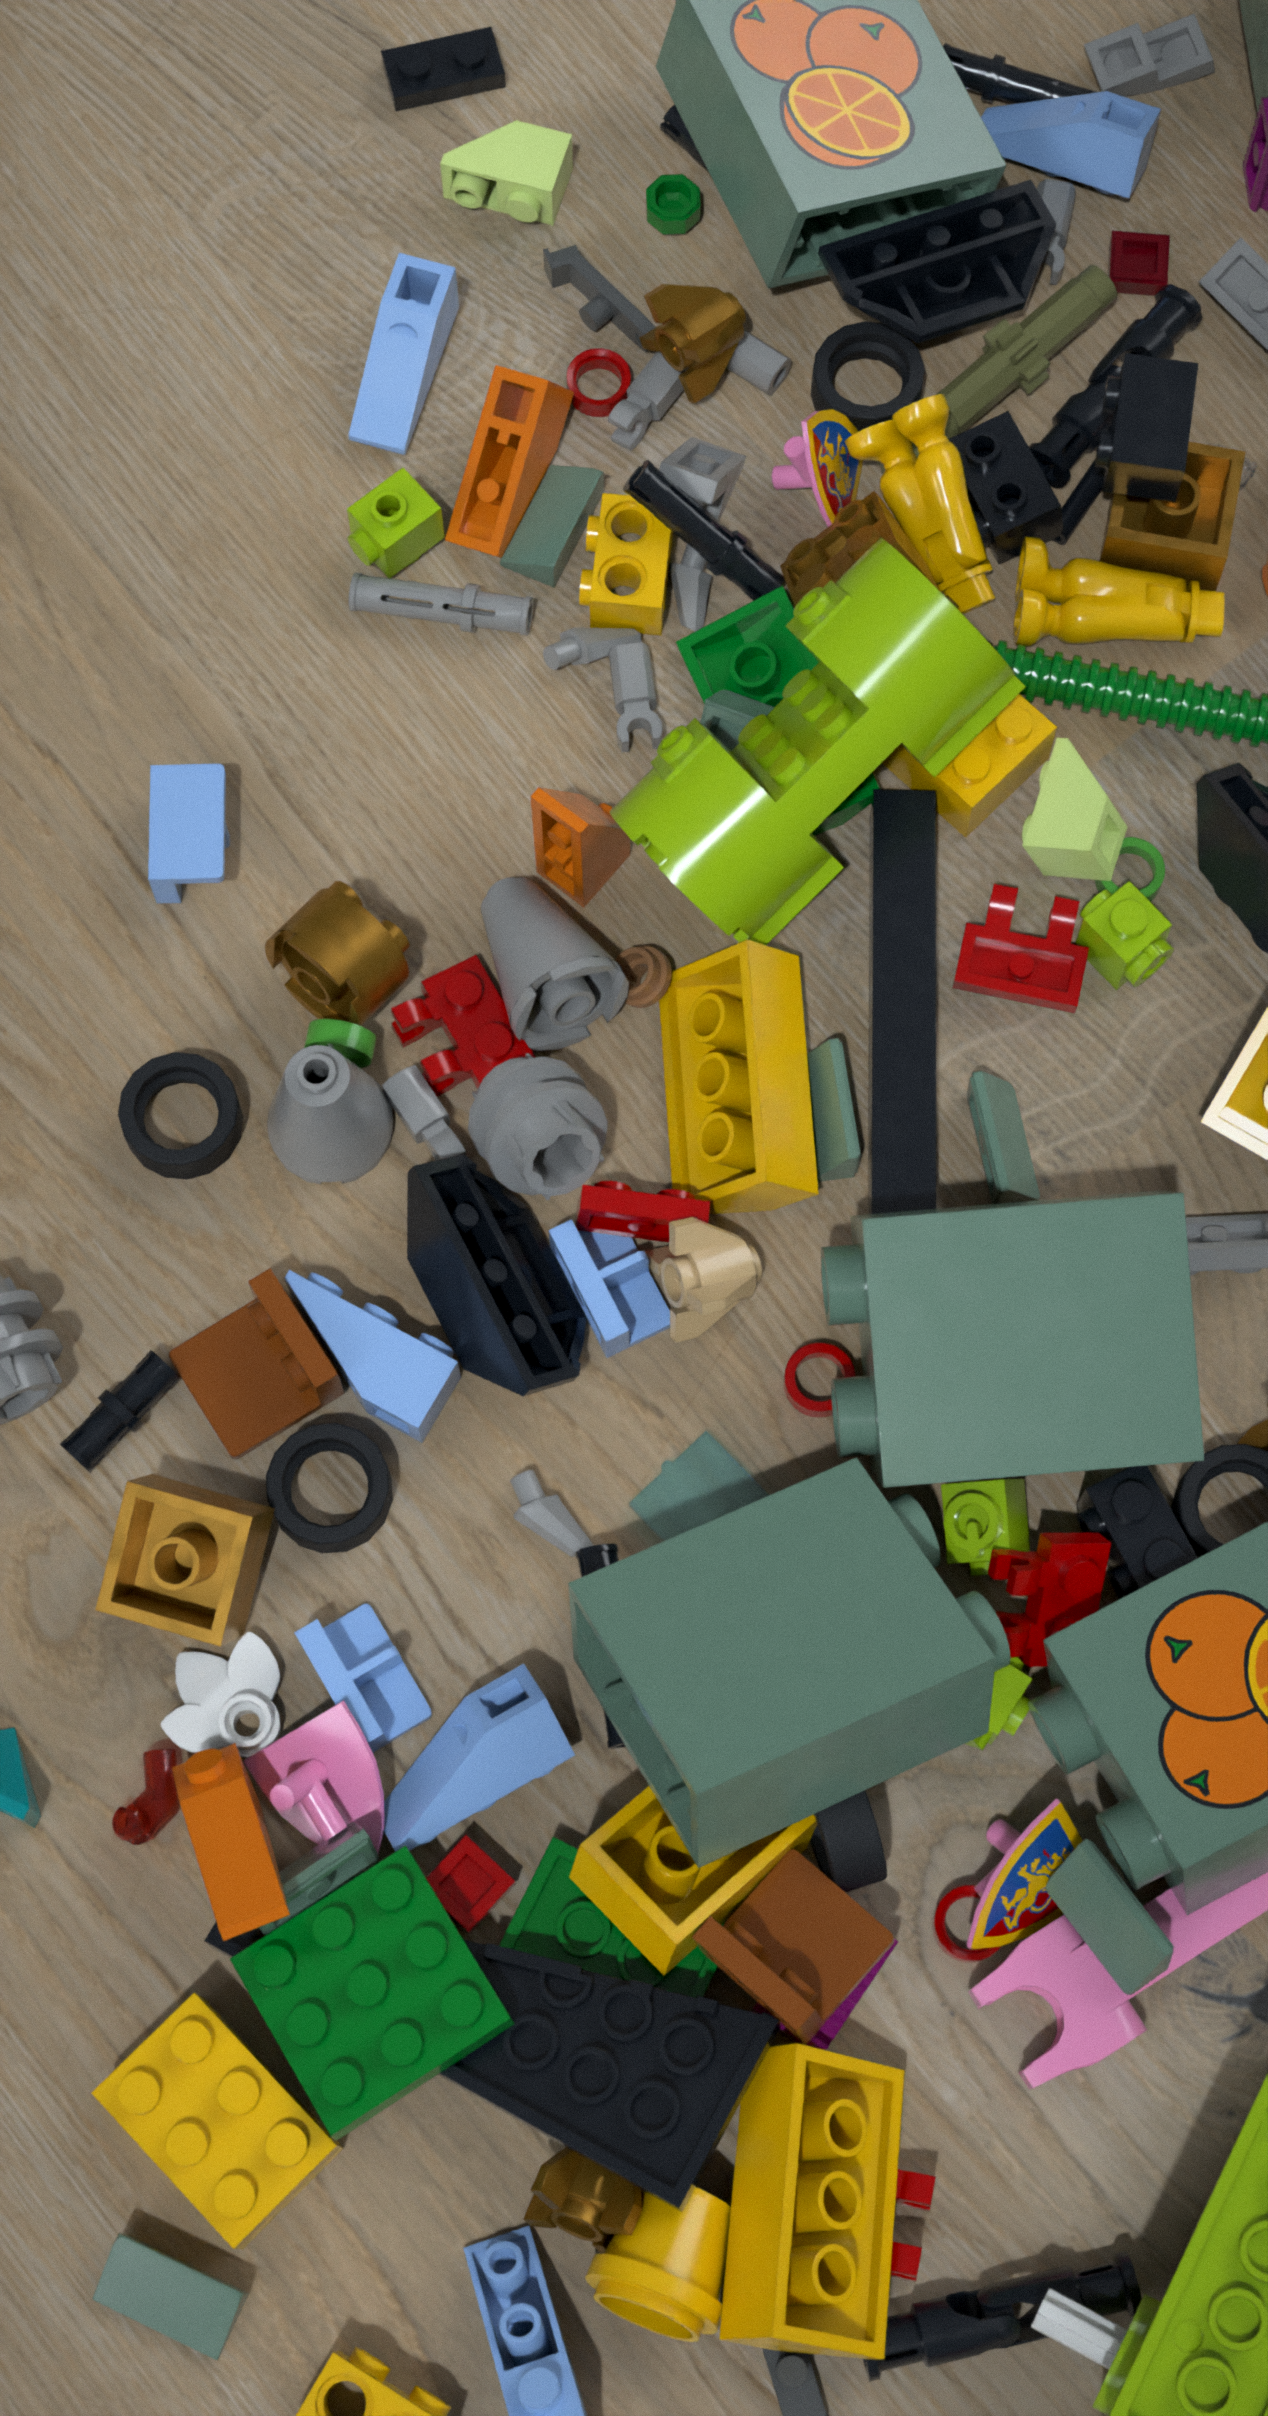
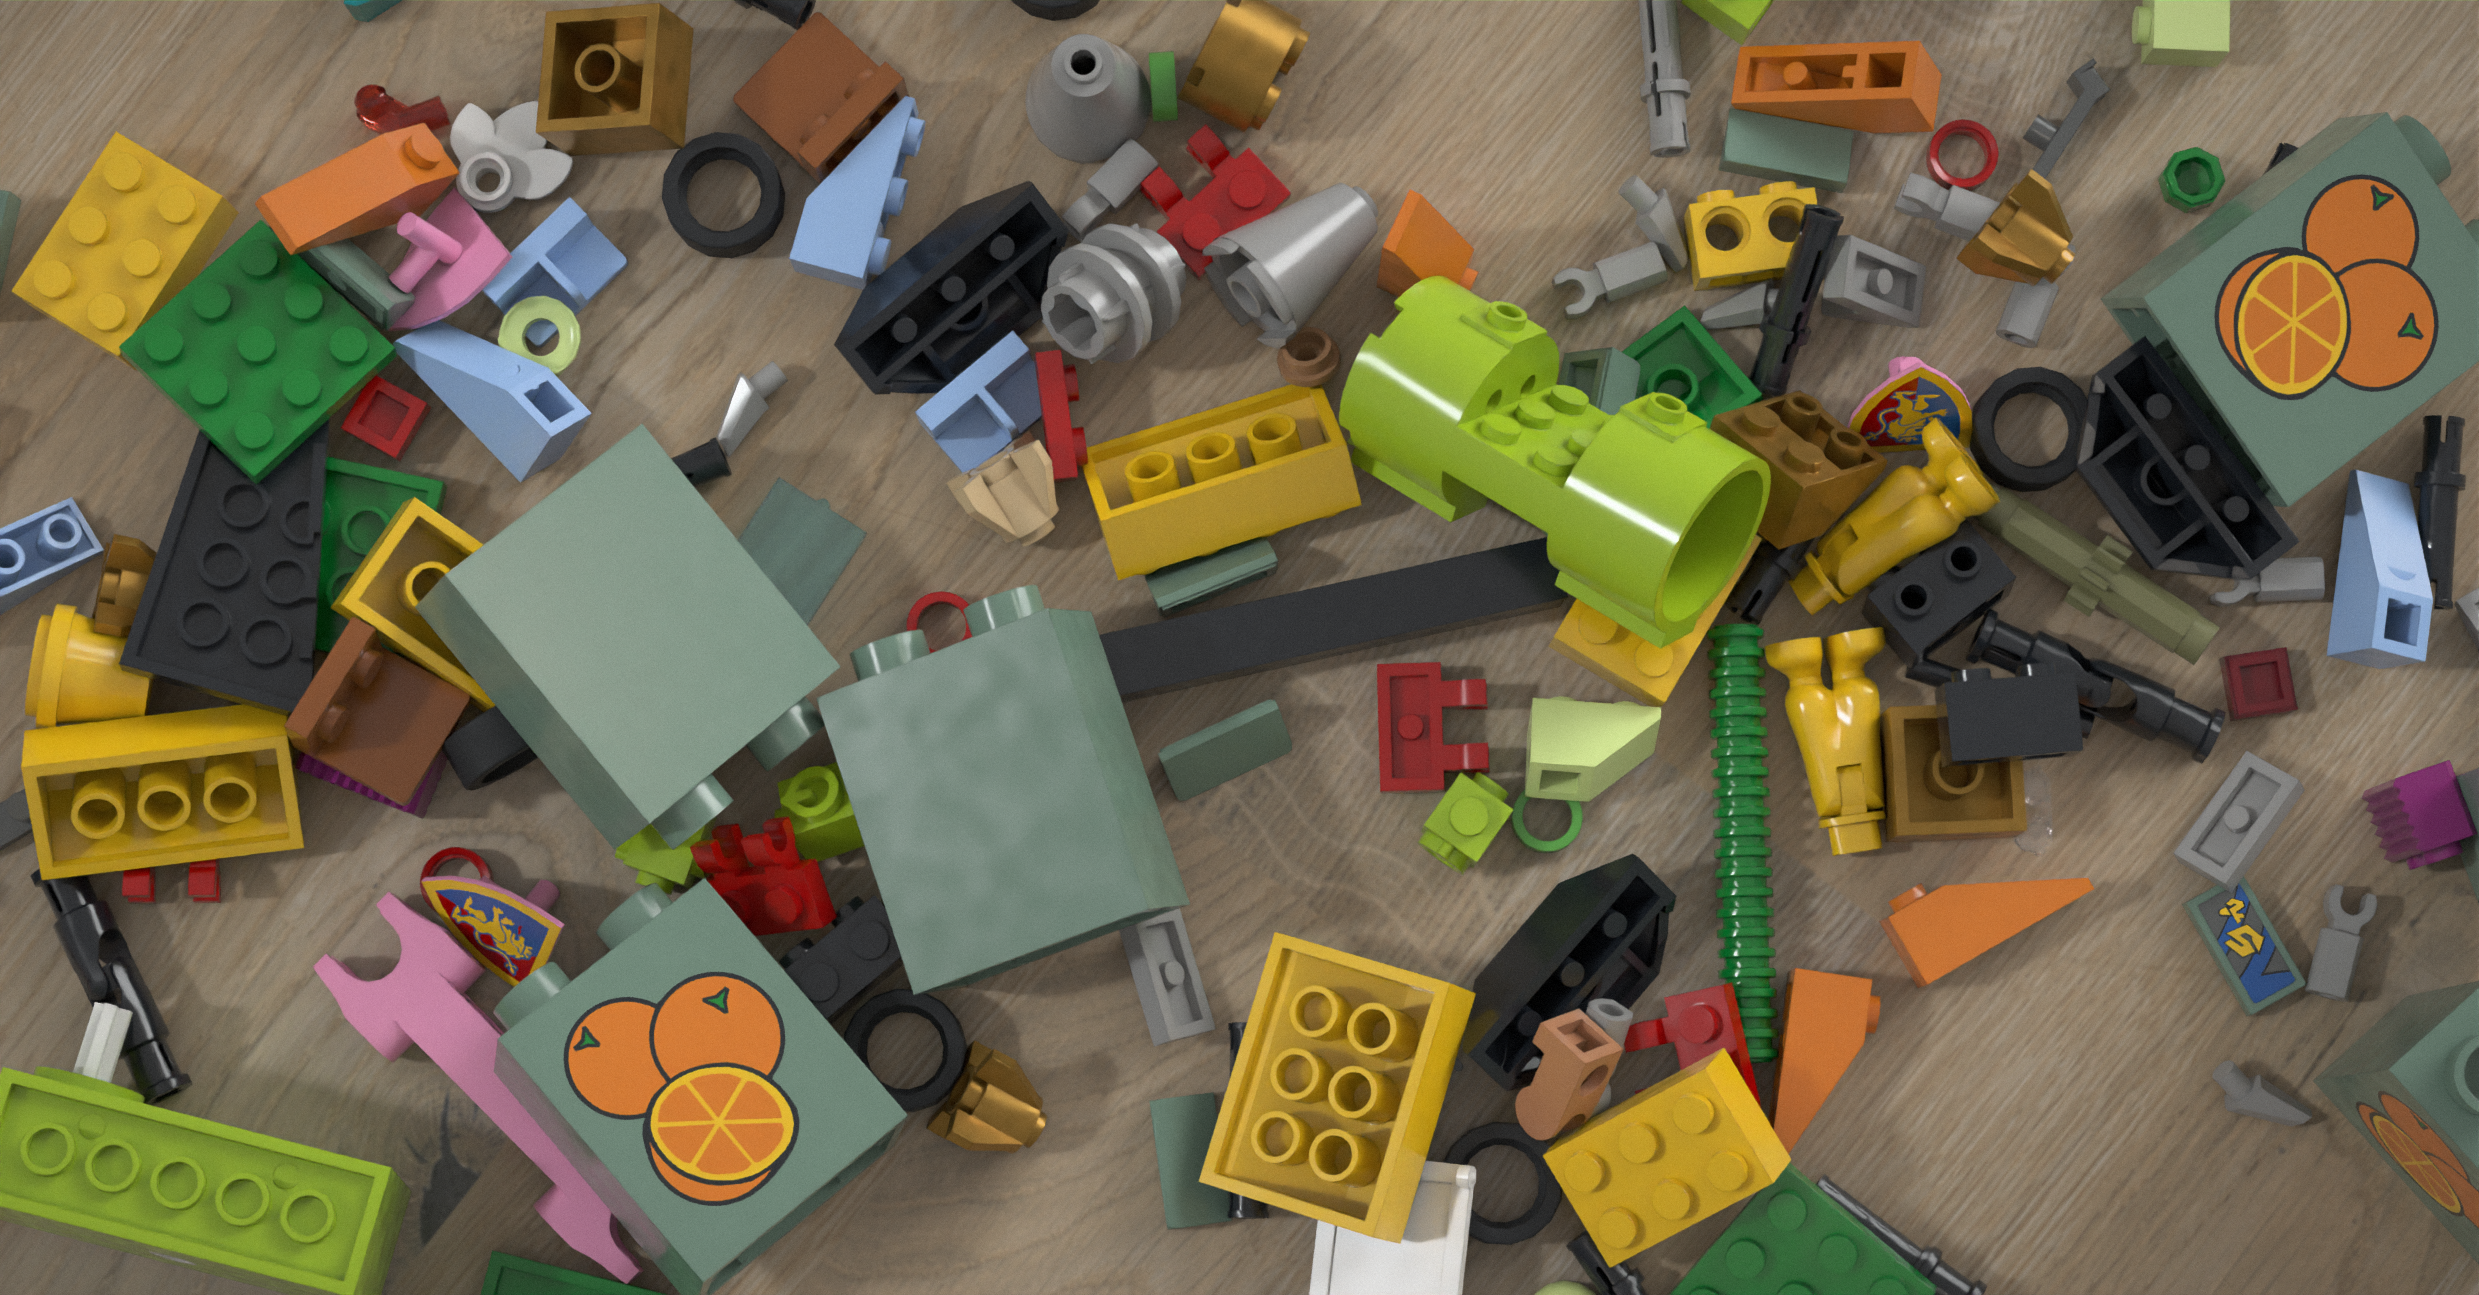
camera: 75 degrees right, 10 degrees up
(407, 1680) = (534, 309): none -> yellowish green piece
(1110, 1918) = (470, 999): sand green slope -> none

